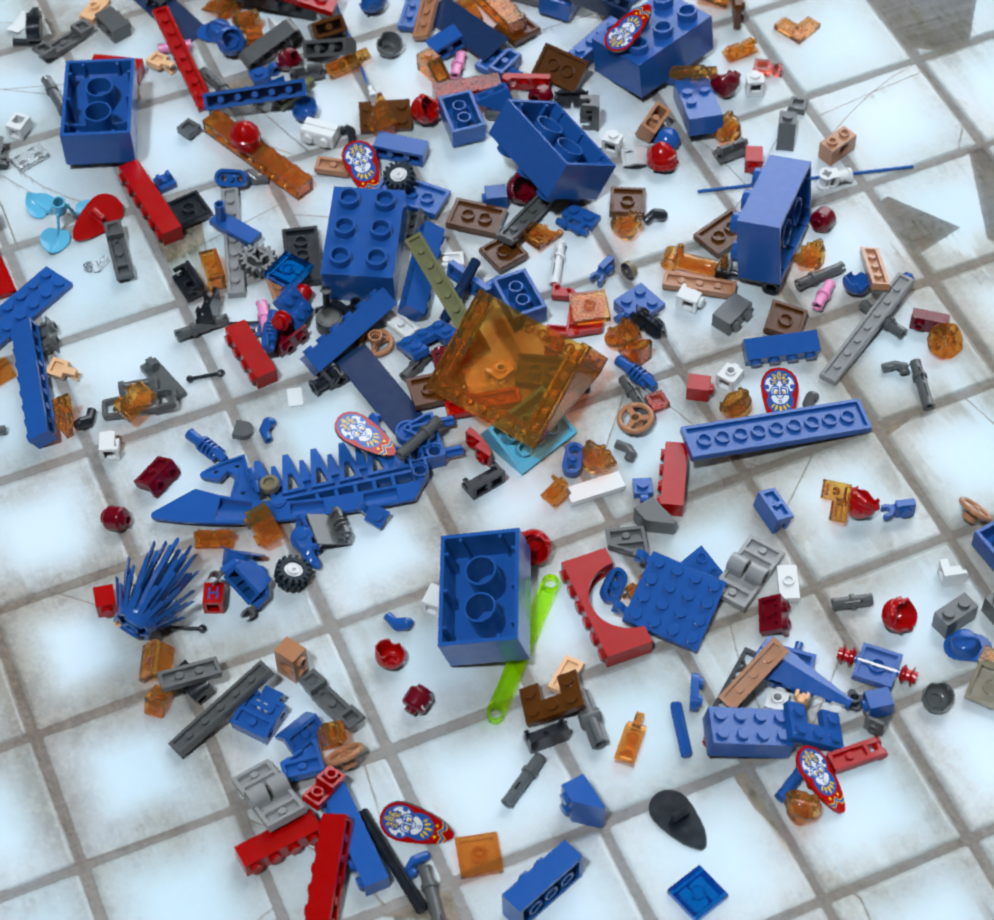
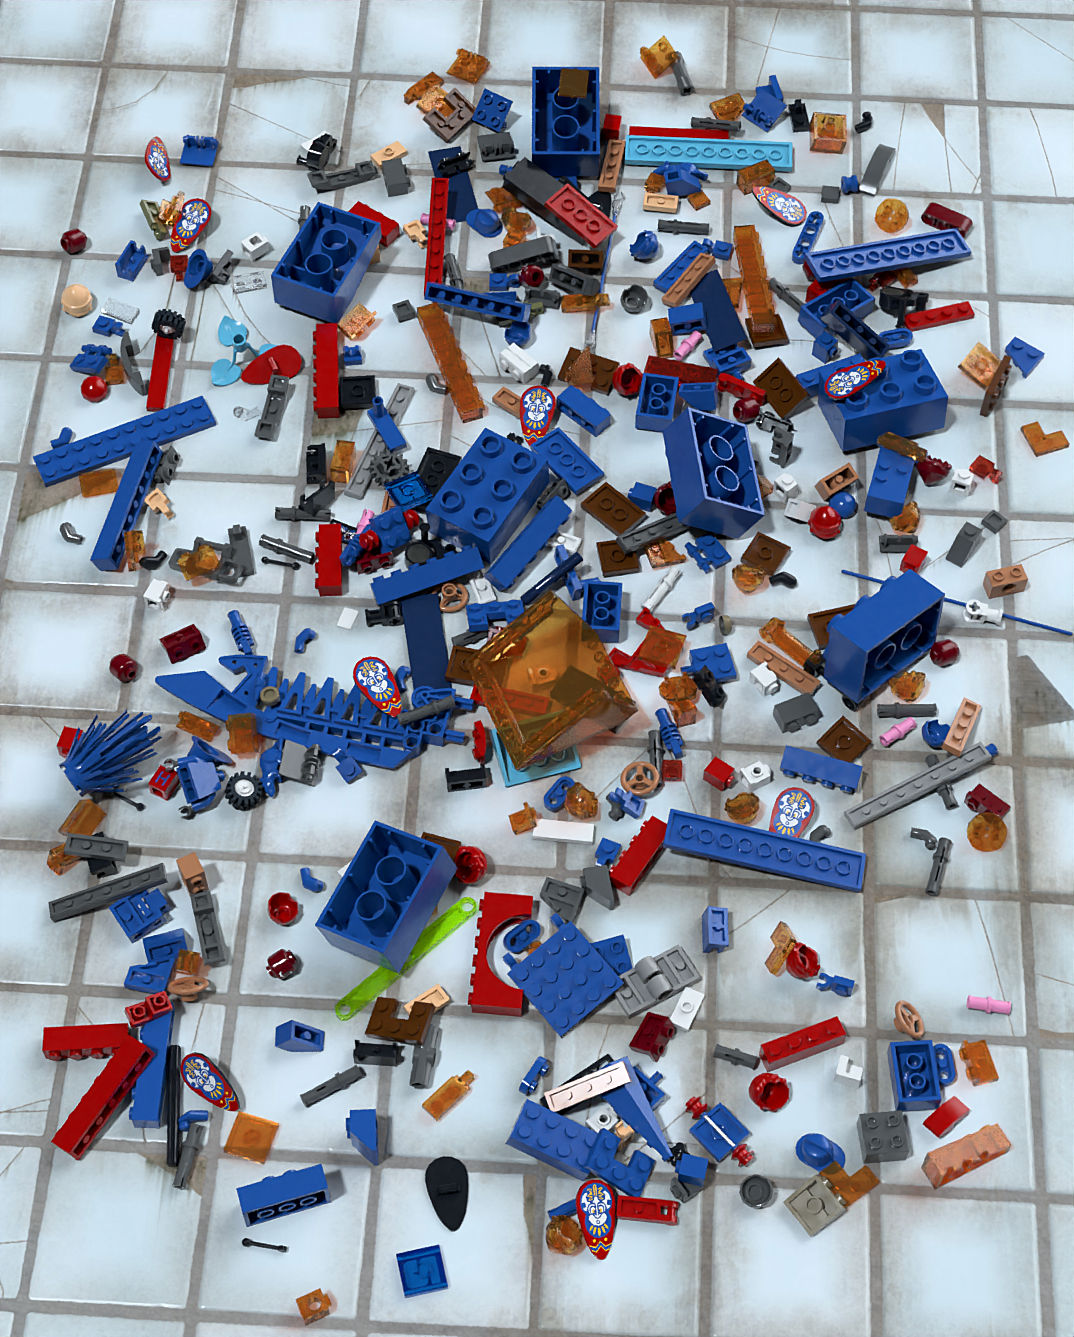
camera: 25 degrees right, 5 degrees up
(151, 152) = (355, 321): none -> clear orange bracket
(204, 361) = (278, 545): none -> dark grey pin
(231, 40) = (489, 236): blue hair -> none
(232, 178) = (413, 377): blue plate -> none
(243, 430) = (282, 631): dark grey tile -> none
(245, 136) = (442, 341): red hair -> none
(269, 795) = (100, 993): light grey plate -> none
(399, 176) = (561, 440): black wheel -> none
(436, 277) = (533, 554): olive plate -> none
(470, 753) = (298, 1037): none -> blue slope
(576, 23) = (825, 347): none -> blue brick
(639, 441) = (629, 803): none -> blue plate
(681, 729) = (500, 1106): blue axle -> none
(738, 51) = (970, 440): clear orange hinge -> none
(901, 567) = (802, 1044): none -> red brick
(954, 615) = (823, 1117): dark grey brick -> none

